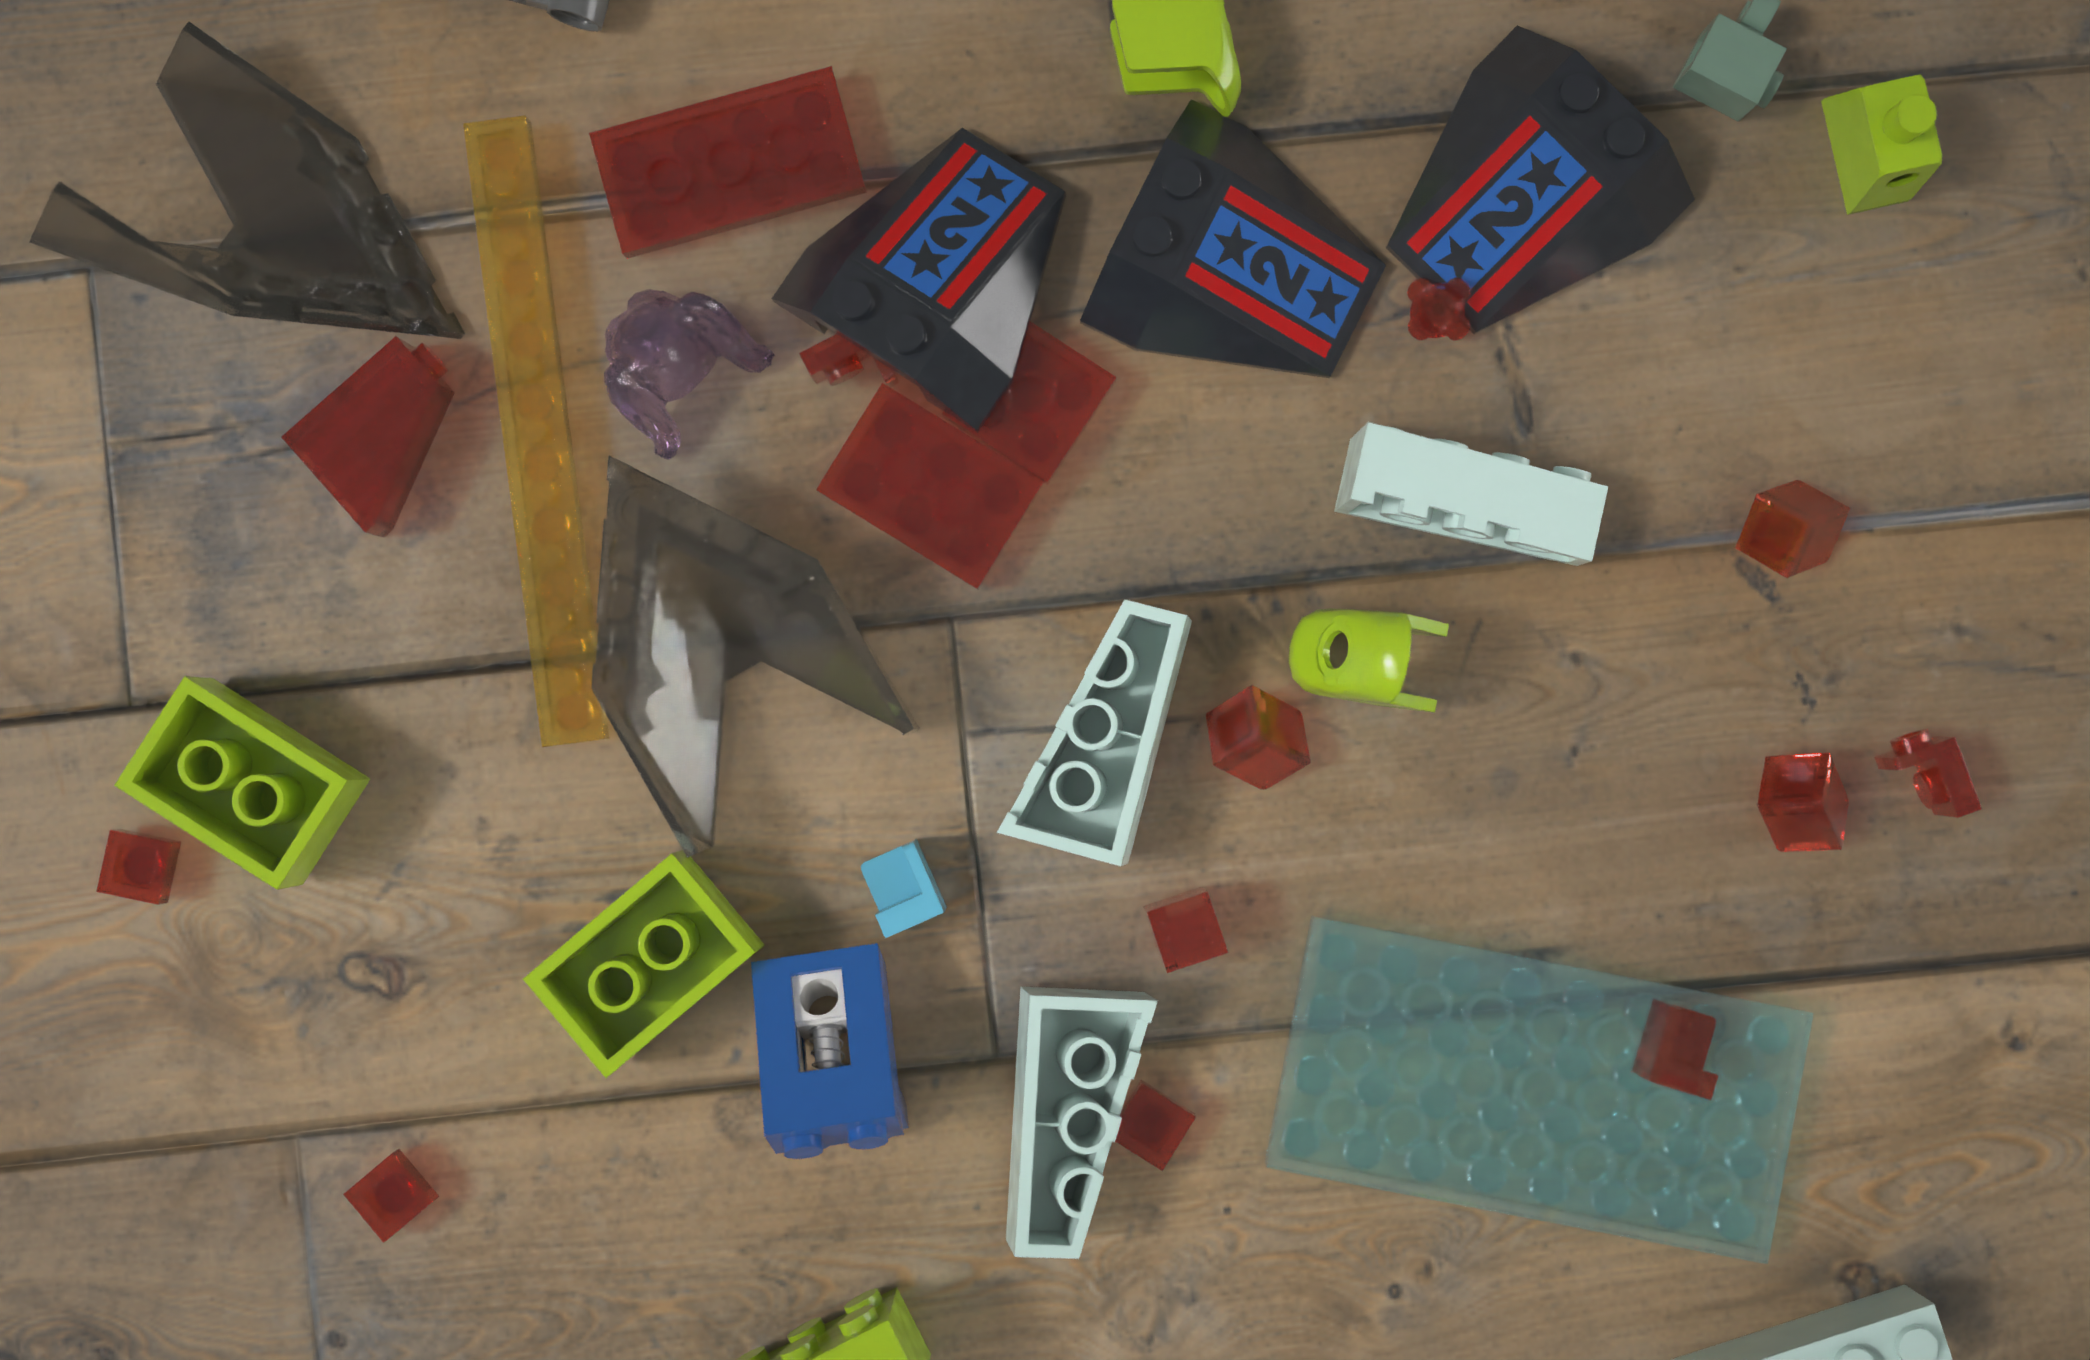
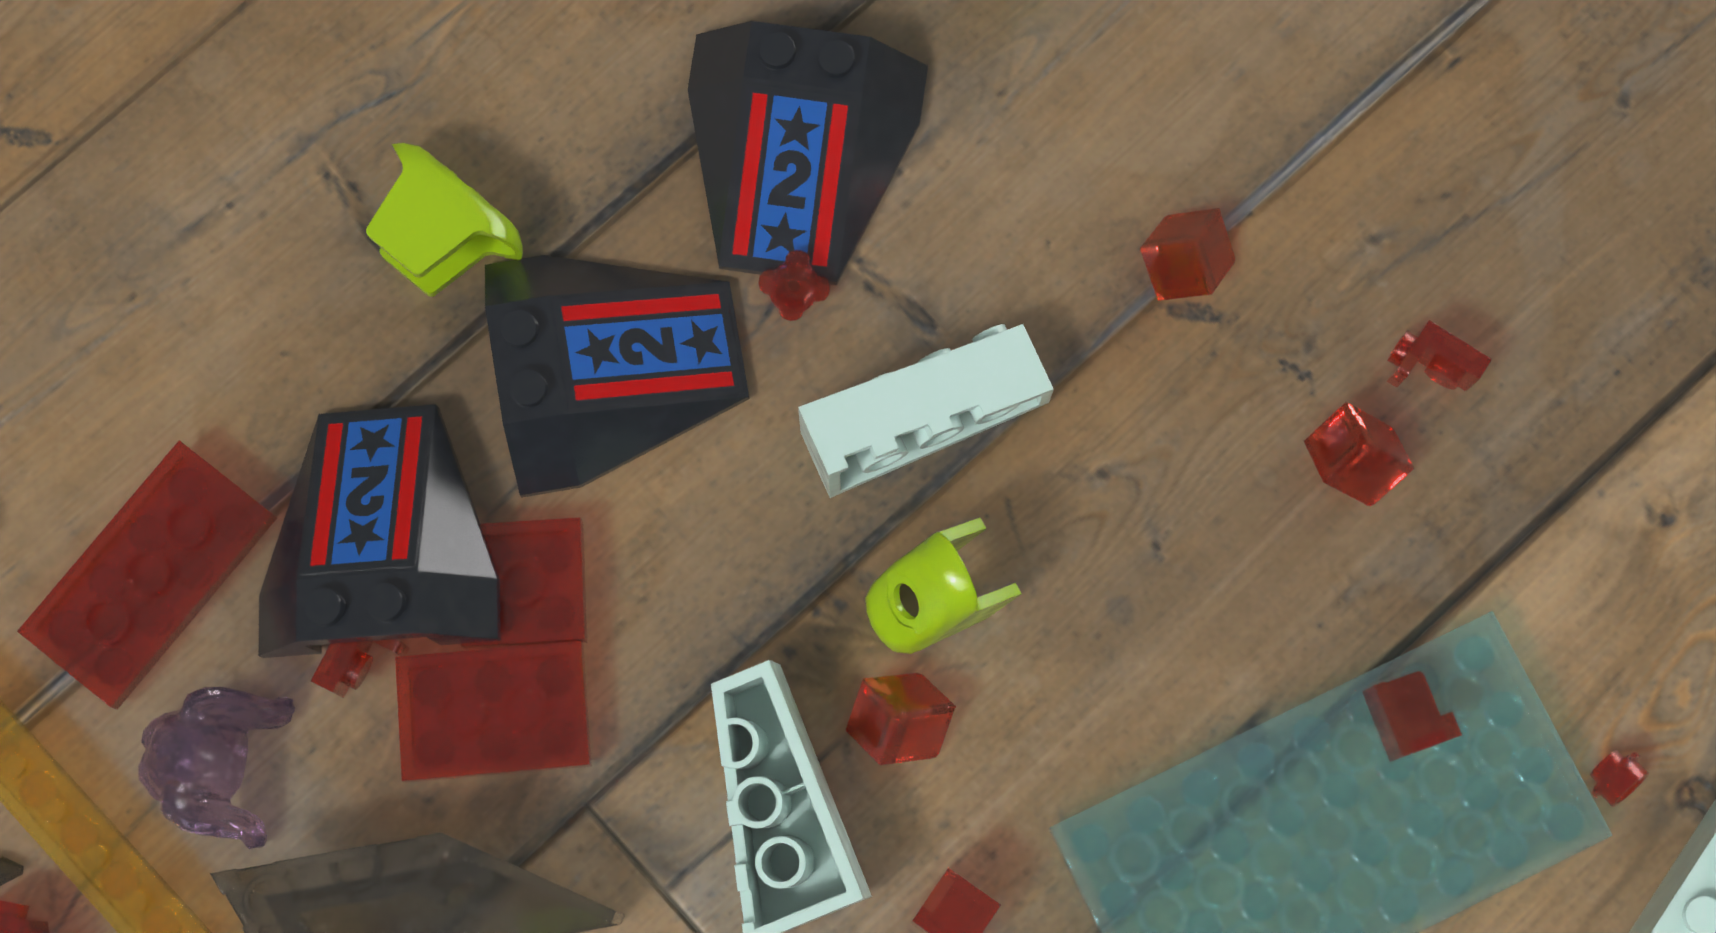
camera: 40 degrees left, 10 degrees down
(1808, 1220) = (1618, 777): none -> clear red plate

